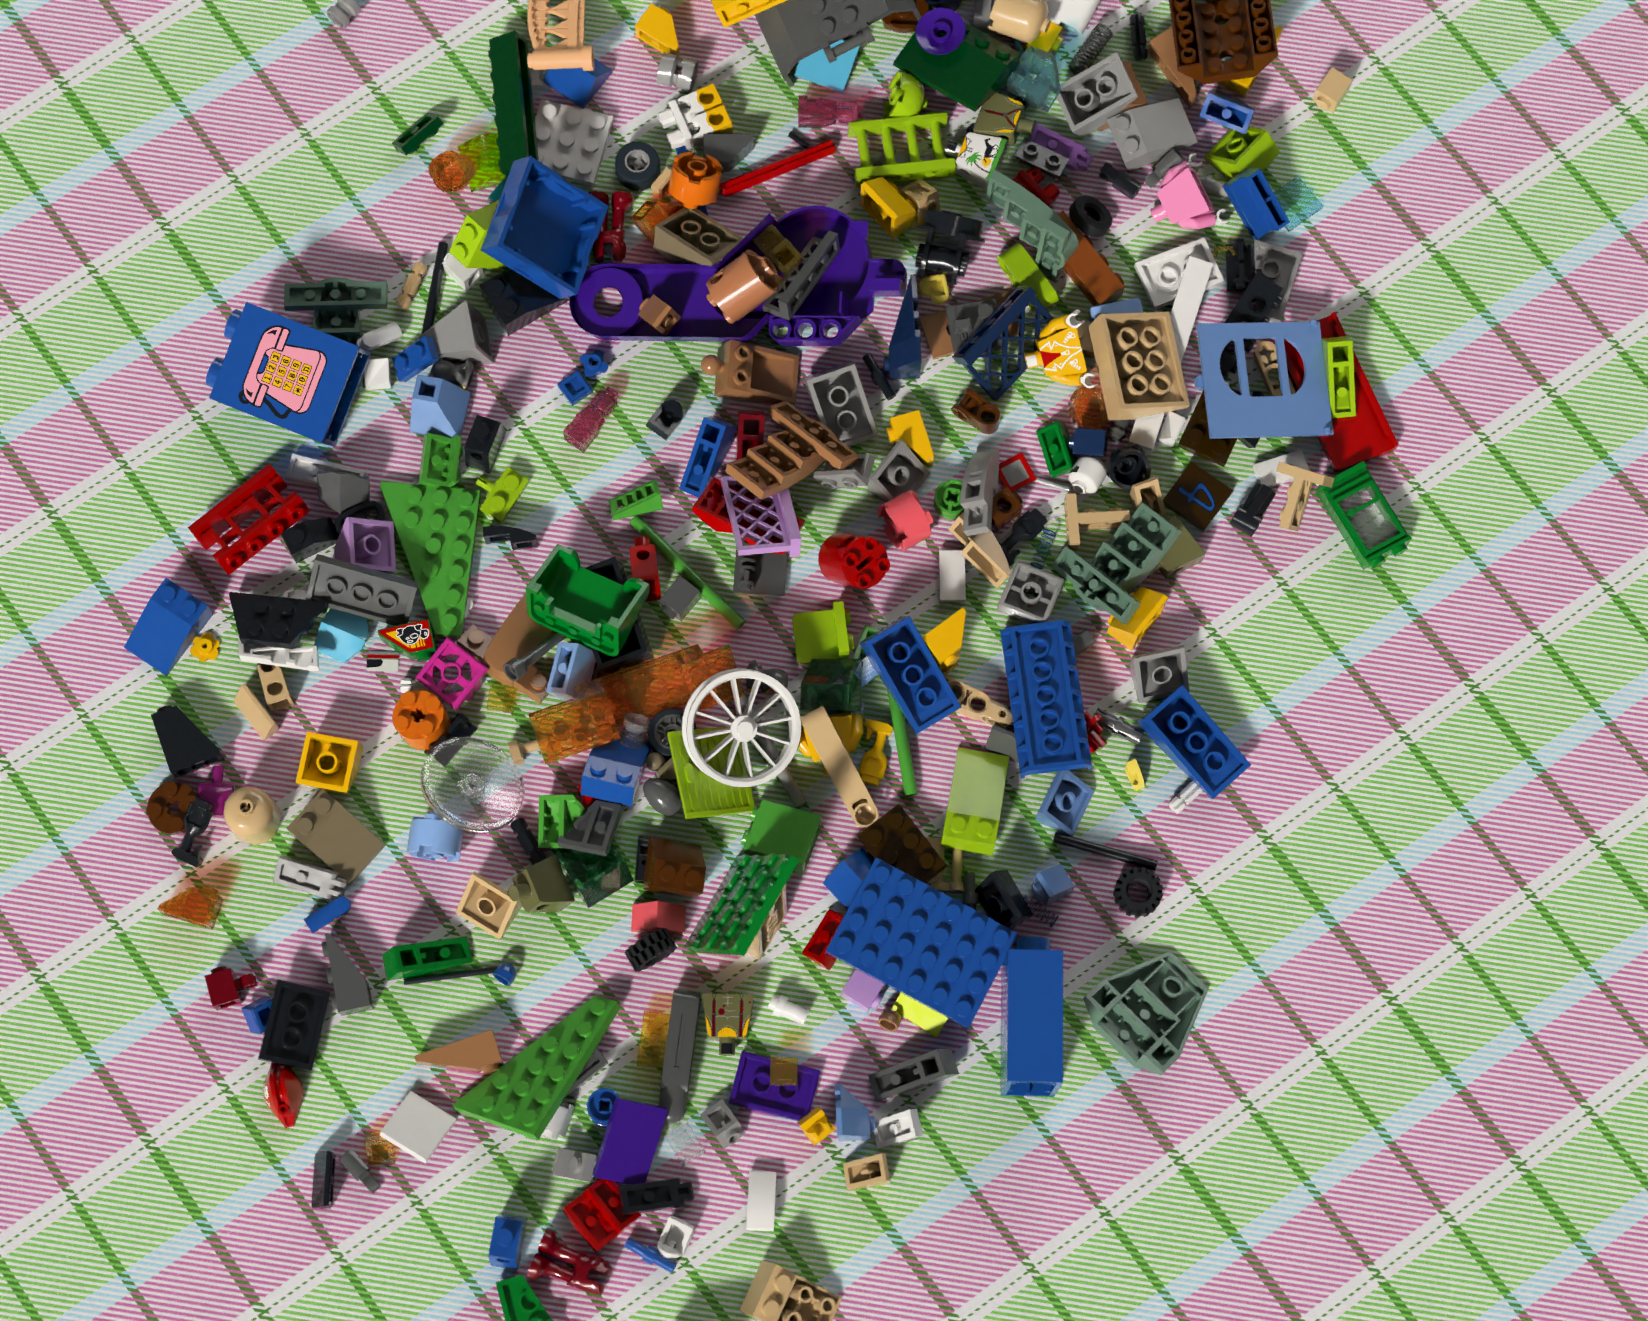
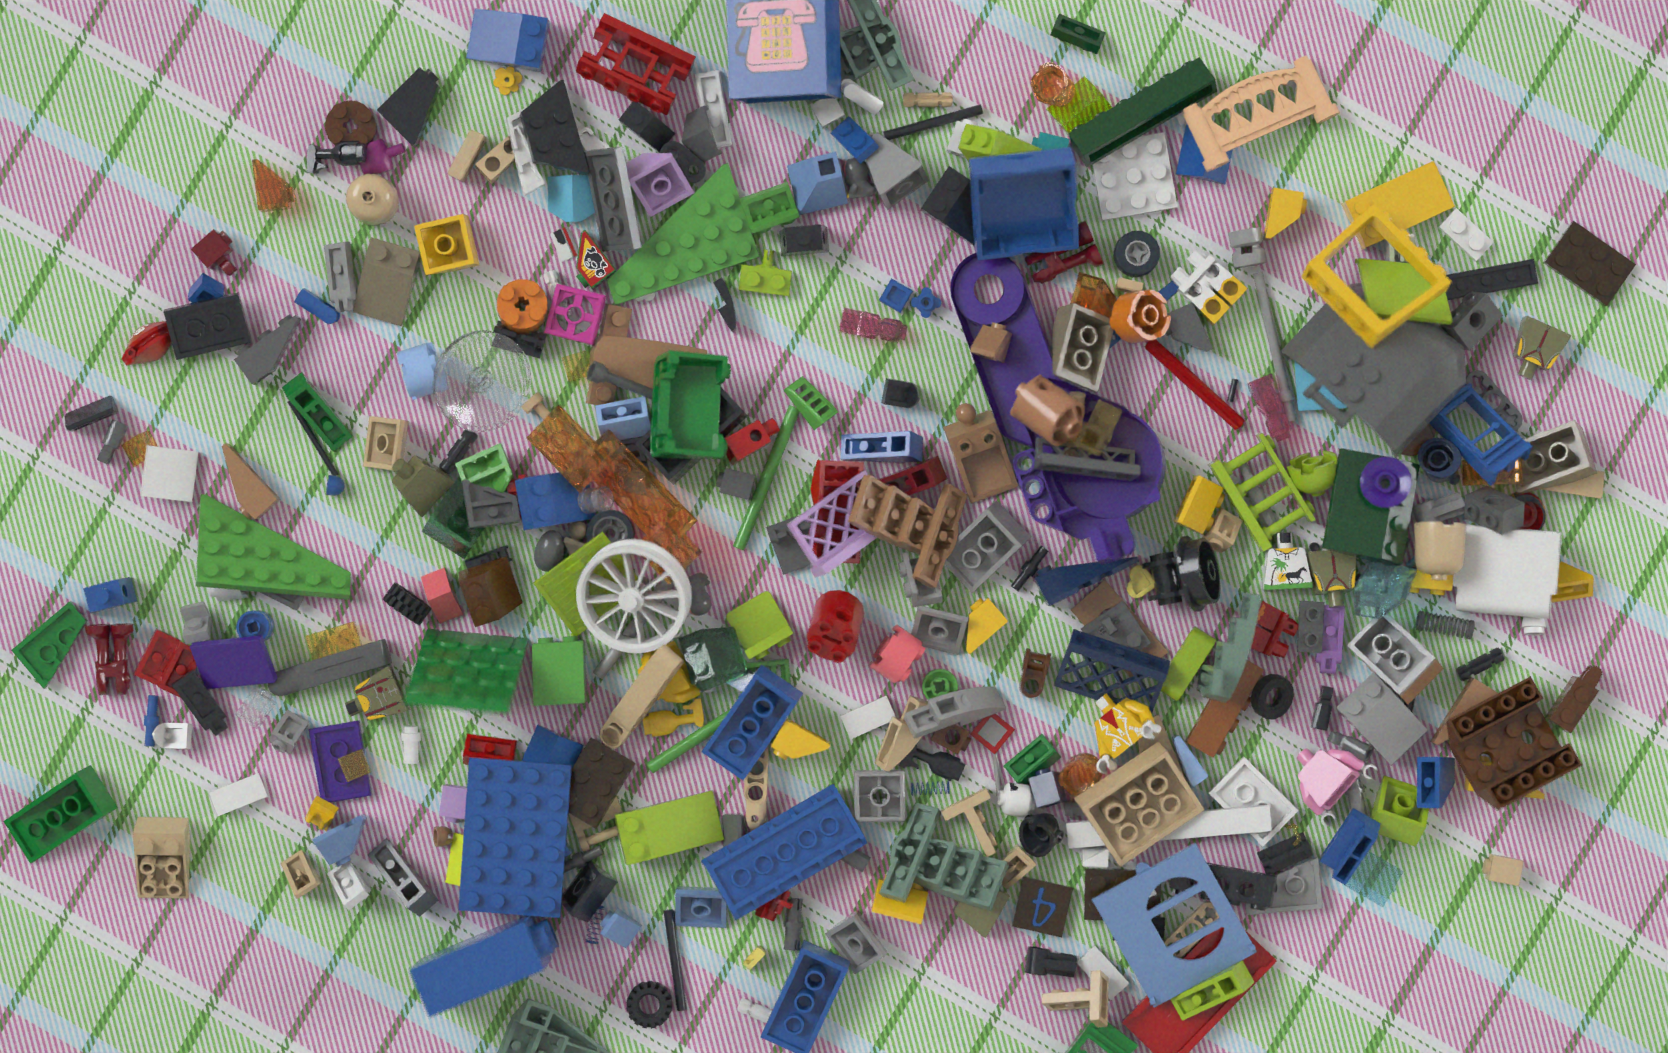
camera: 70 degrees right, 15 degrees up
(771, 87) = (1285, 395): none -> light grey bar

